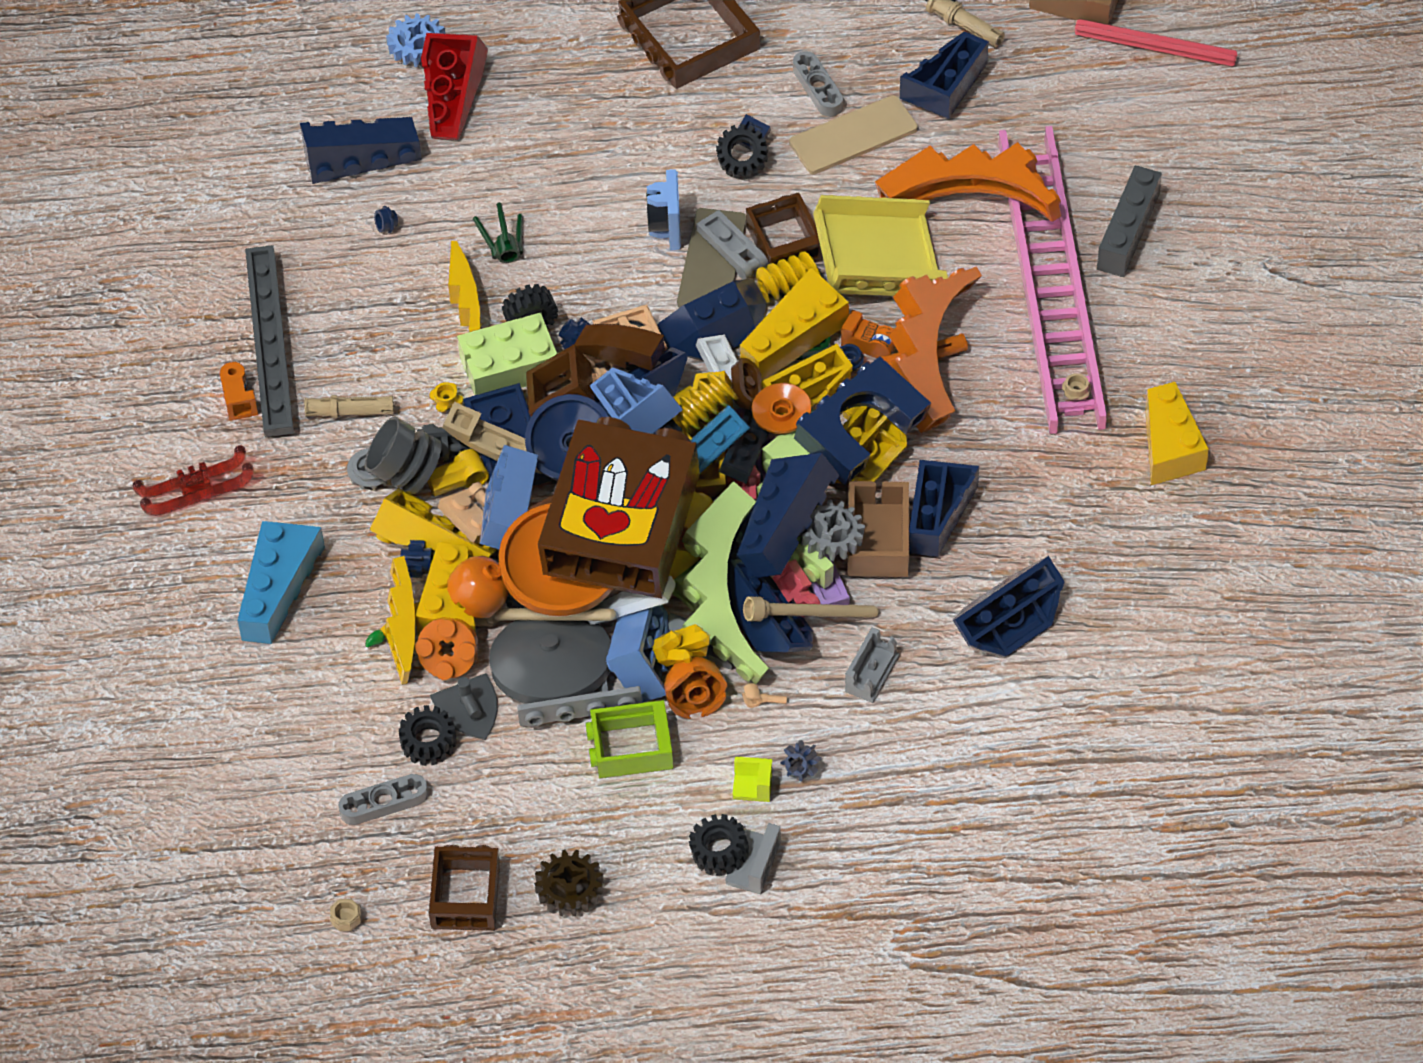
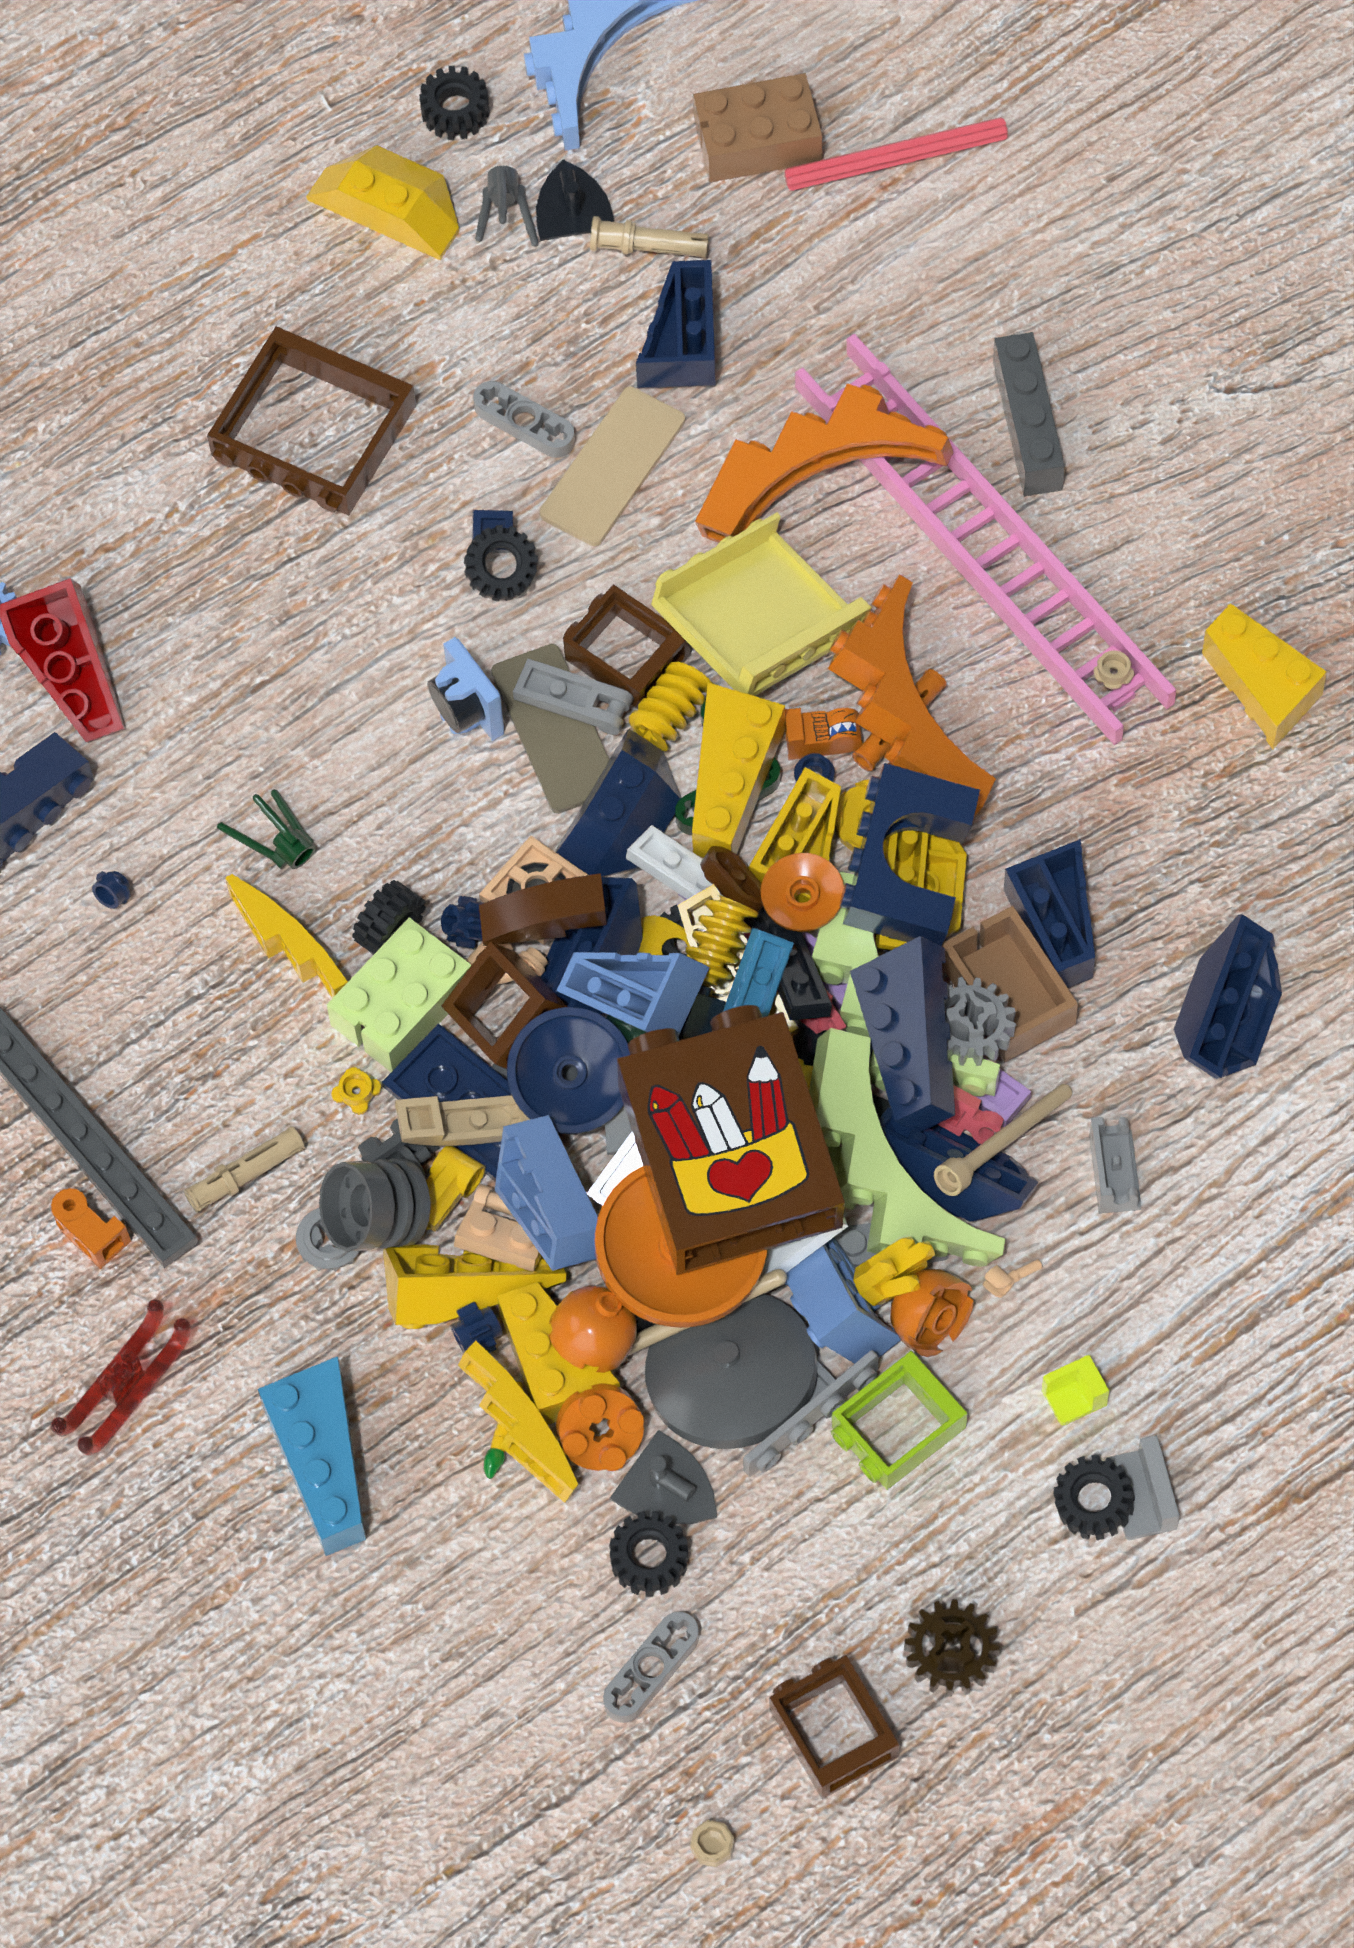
camera: 30 degrees left, 10 degrees up
(793, 764) = (1117, 1334): dark blue gear -> none

